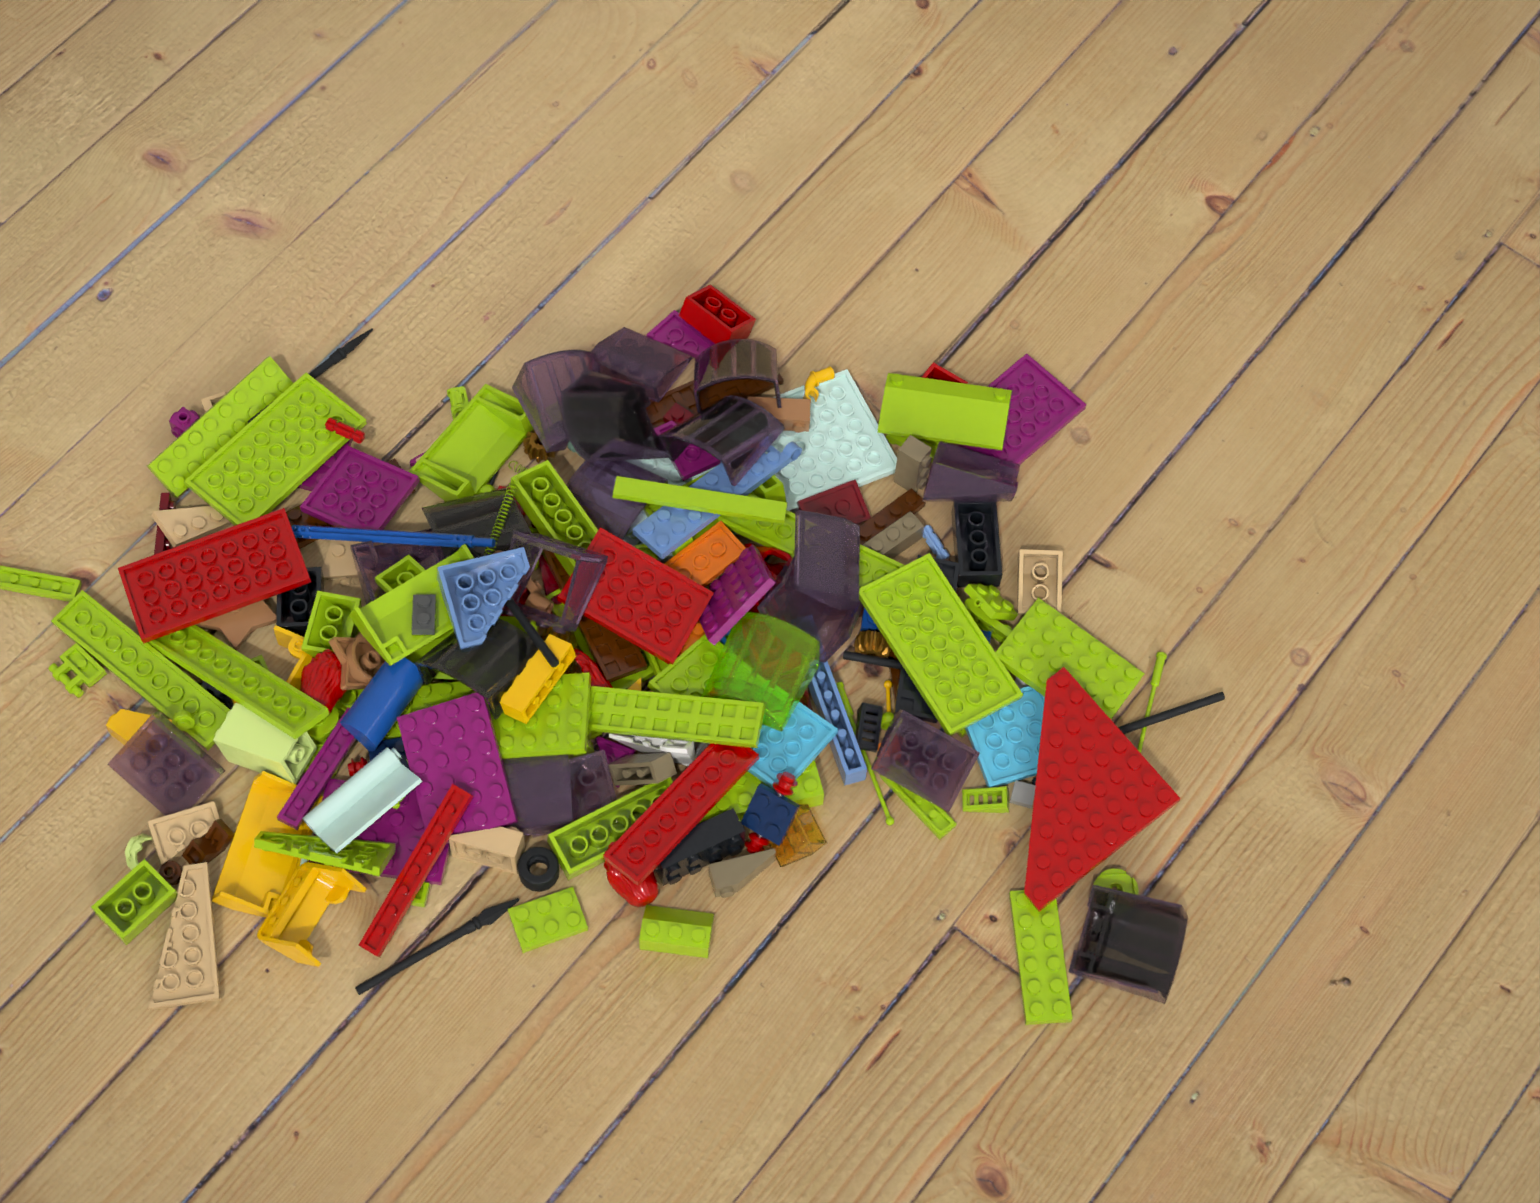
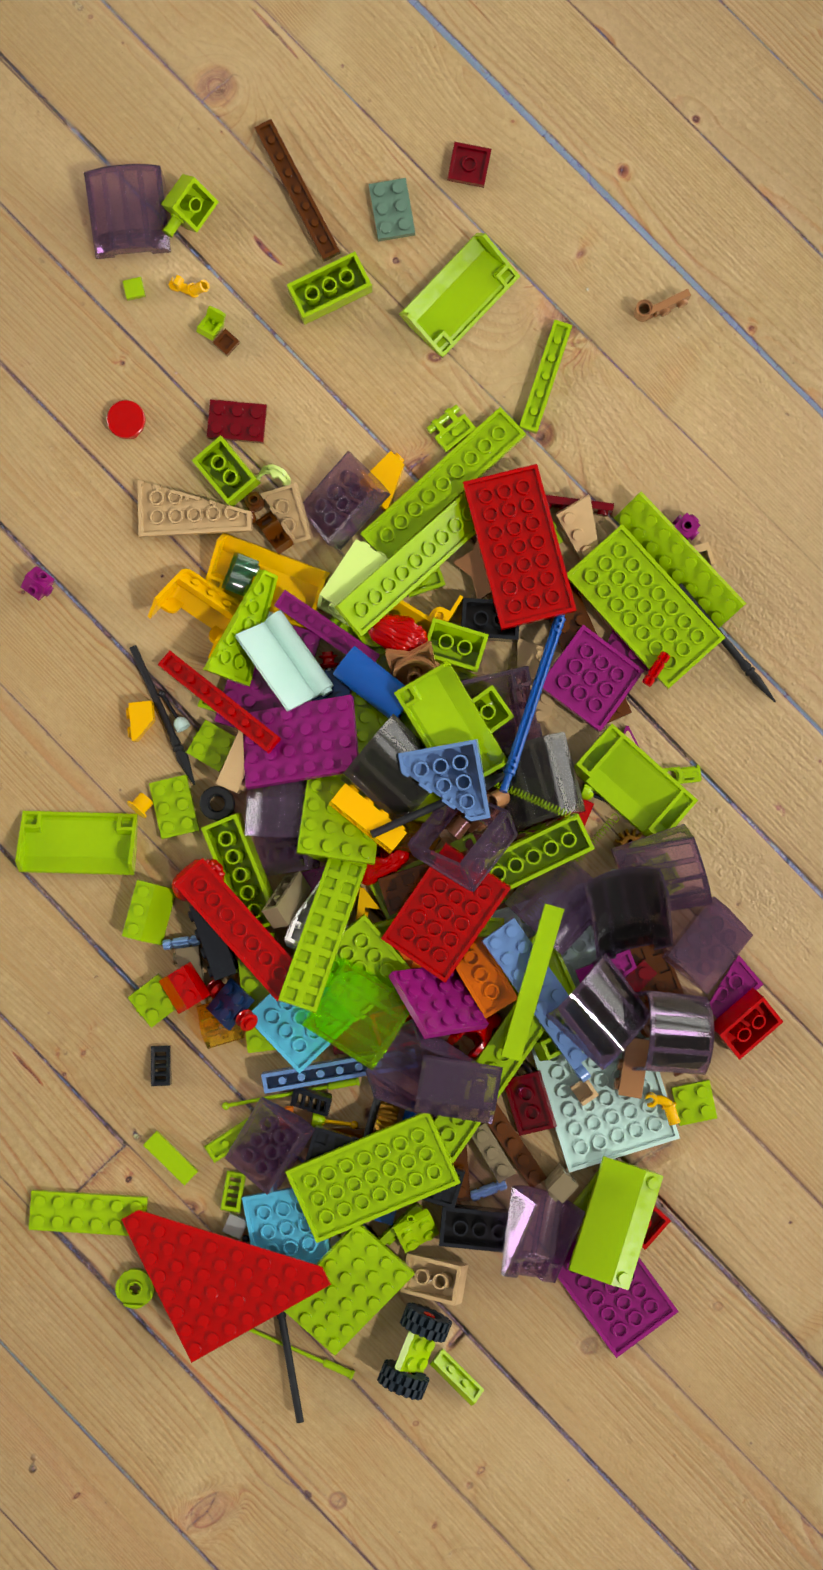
camera: 100 degrees right, 25 degrees up
(70, 906) = (237, 421): none -> dark red plate
(72, 1033) = (126, 419): none -> red tile
(183, 720) = (383, 515): lime plate -> none
(261, 872) = (240, 574): none -> clear green brick
(284, 1108) = (38, 583): none -> magenta brick
(423, 614) = (442, 724): dark grey plate -> none
(444, 967) = (141, 719): none -> yellow slope
(445, 923) = (180, 723): none -> hinge
(470, 884) = (211, 745): none -> lime plate
(550, 954) = (140, 804): none -> yellow piece
(603, 1022) = (77, 843): none -> lime slope
(707, 891) = (180, 942): none -> light blue axle
(761, 870) = (184, 988): none -> red slope
(780, 912) = (152, 1001): none -> lime plate
(804, 359) = (694, 1102): none -> lime plate
(812, 455) = (584, 1092): none -> tan panel
(861, 886) = (168, 1073): none -> black slope
(959, 873) = (170, 1157): none -> lime tile
(1131, 943) = (80, 1289): clear smoke windscreen -> none
(1139, 551) = (457, 1377): none -> lime plate
(1150, 593) = (406, 1374): none -> black plate

